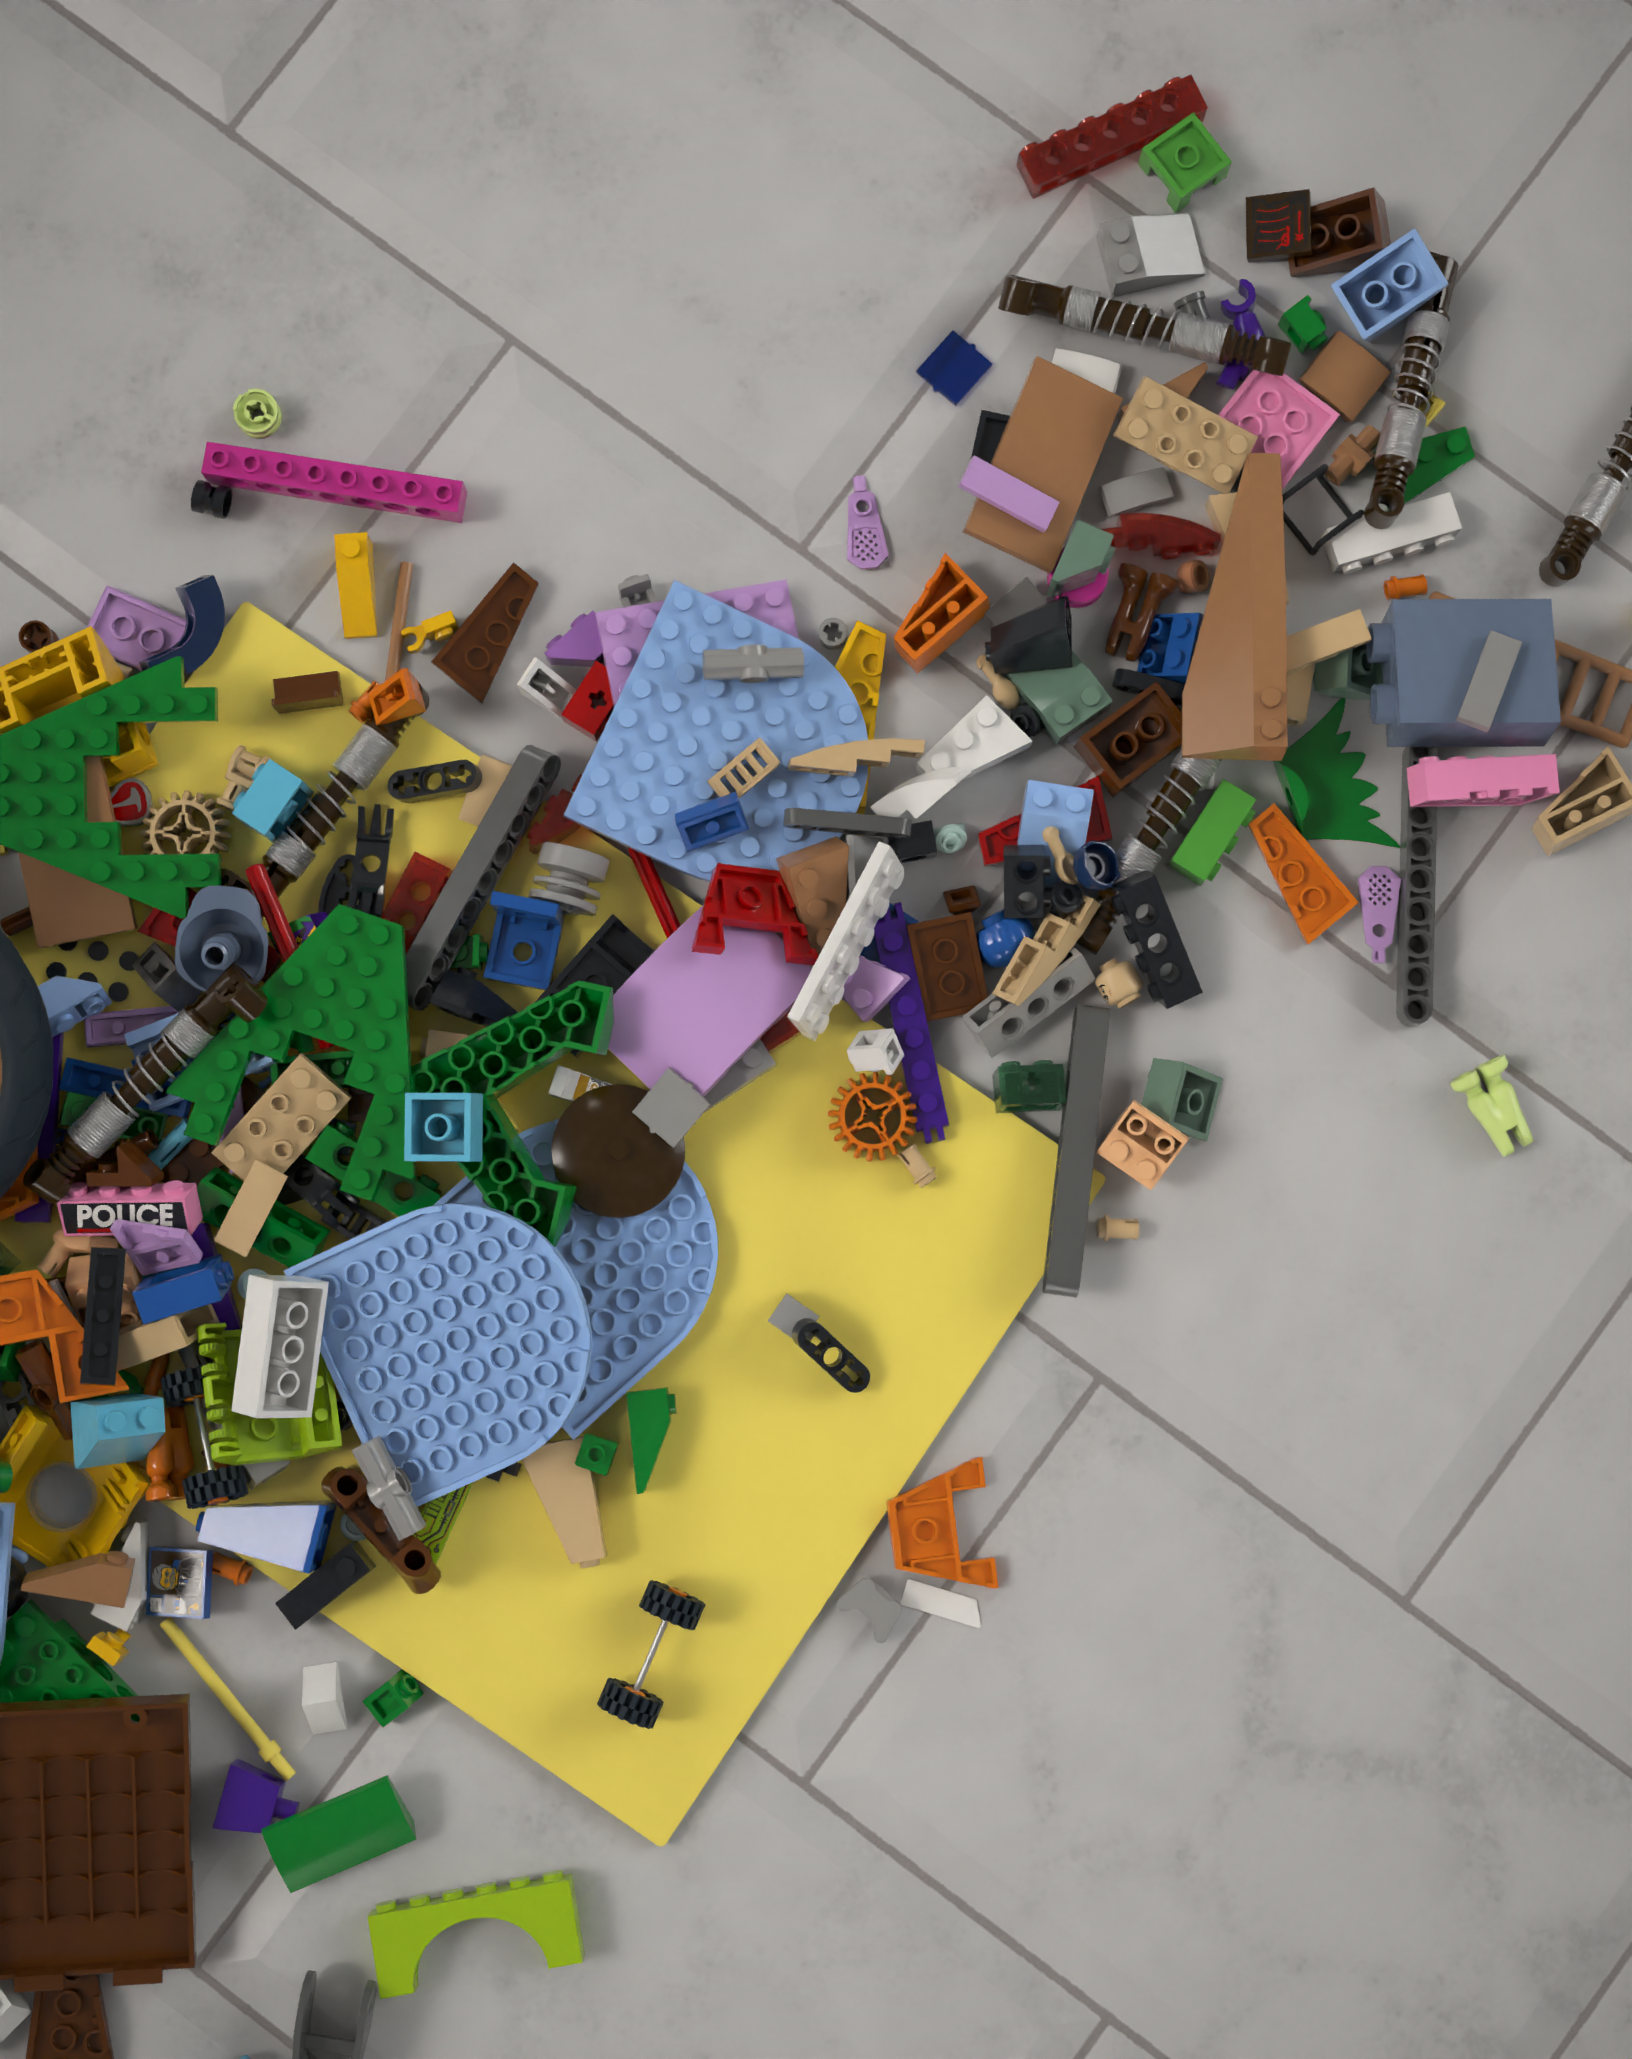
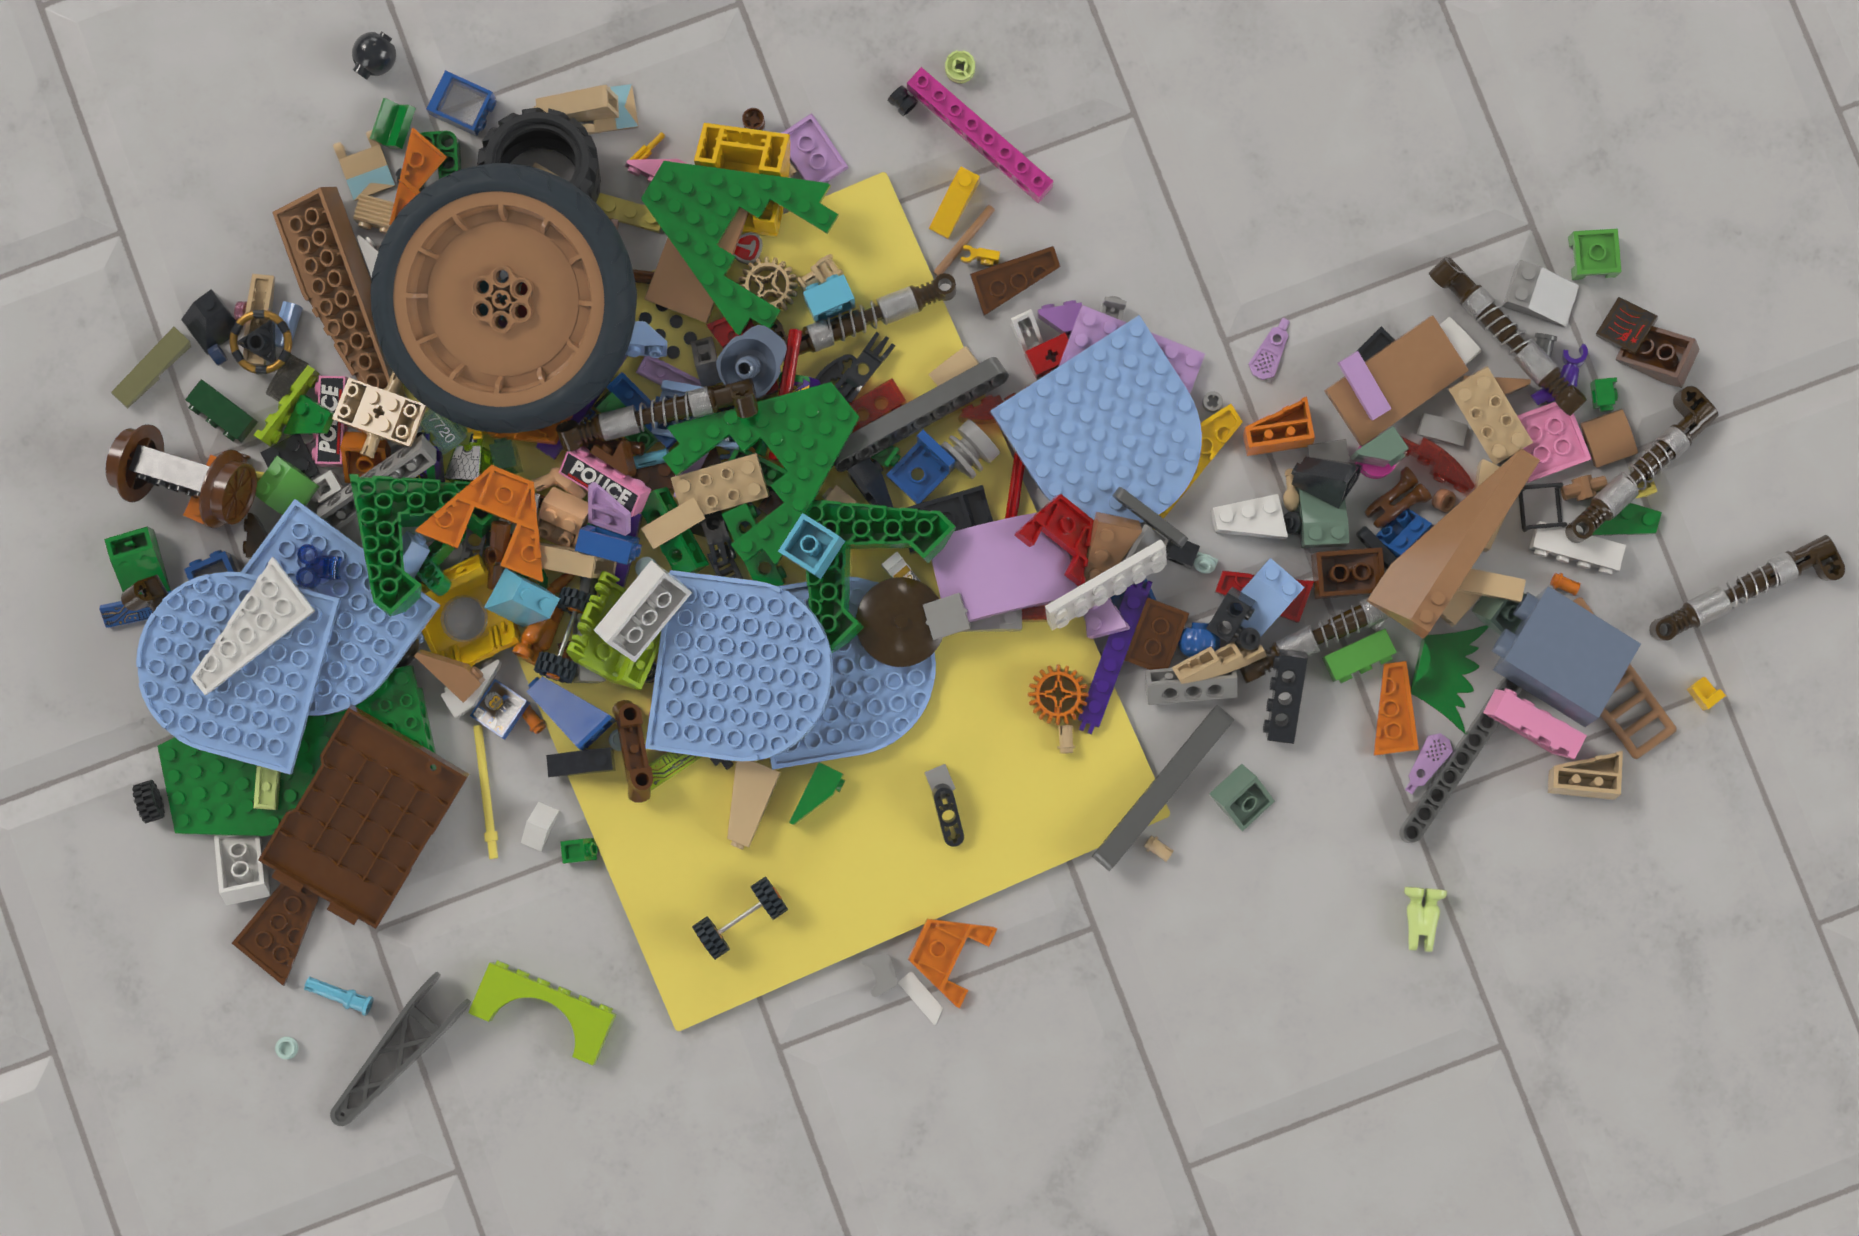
camera: 35 degrees right, 0 degrees up
(103, 1316) = (554, 532): black plate -> none
(110, 1646) = (440, 719): yellow plate -> none
(203, 627) = (851, 173): dark blue arch -> none
(252, 1800) = (464, 857): dark purple torso -> none
(307, 692) = (888, 247): reddish brown panel -> none
(339, 1834) = (502, 906): green slope -> none
(362, 707) = (919, 275): orange pin -> none
(389, 1488) = (652, 729): light grey piece -> none
(397, 698) = (937, 284): orange slope -> none
(448, 786) = (923, 336): black beam -> none
(596, 1454) = (780, 786): green bracket -> none
(711, 821) = (1072, 467): blue slope -> none
(753, 663) = (1153, 391): light grey piece -> none
(766, 754) = (1127, 446): tan slope -> none
(844, 758) = (1172, 478): tan slope -> none
(875, 1051) = (1083, 658): white brick -> none
(919, 792) = (1203, 526): white slope -> none
(954, 368) = (1382, 290): clear blue piece -> none
(962, 900) = (1189, 603): reddish brown slope -> none
(1013, 1096) = (1147, 735): clear green brick -> none
(1044, 177) = (1505, 210): clear red brick -> none
(1063, 860) = (1261, 619): tan piece -> none
(1096, 866) = (1278, 632): dark blue hair -> none
(1119, 983) = (1249, 708): tan head -> none
(1142, 1144) = (1202, 808): light nougat slope -> none
(1390, 286) = (1666, 402): light blue slope -> none
(1489, 681) = (1571, 668): light grey tile -> none

